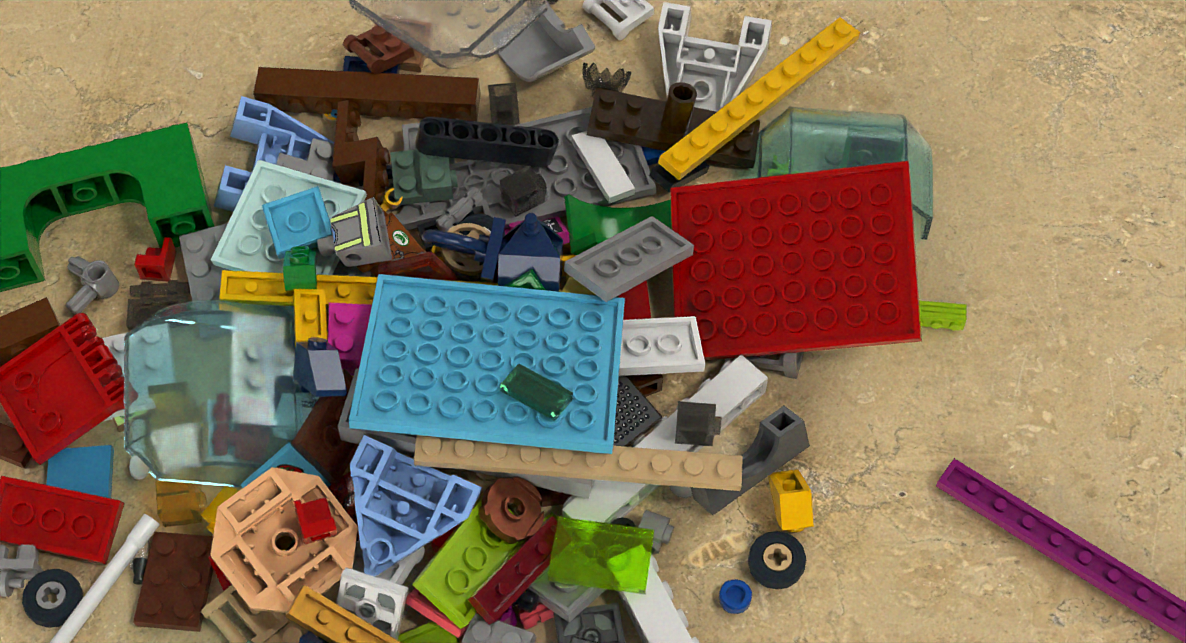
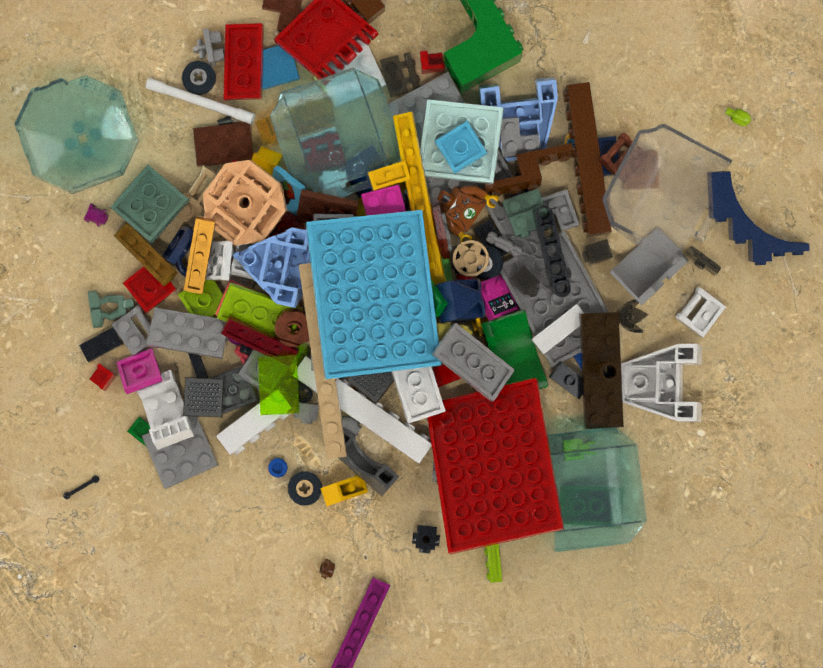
camera: 75 degrees right, 25 degrees up
(96, 280) = (410, 25): light grey axle -> none
(300, 268) = (423, 159): green plate -> none
(315, 520) = (256, 216): red panel -> none
(319, 368) = (347, 193): slope -> none
(358, 235) = (453, 189): light grey torso -> none
(485, 248) = (459, 272): dark blue tile -> none
(536, 392) = (352, 326): clear green tile -> none
(697, 423) = (372, 425): clear smoke brick -> none
(758, 99) = (638, 425): yellow plate -> none
(886, 393) = (429, 531): none -> black brick
(915, 548) = (327, 569): none -> reddish brown plate

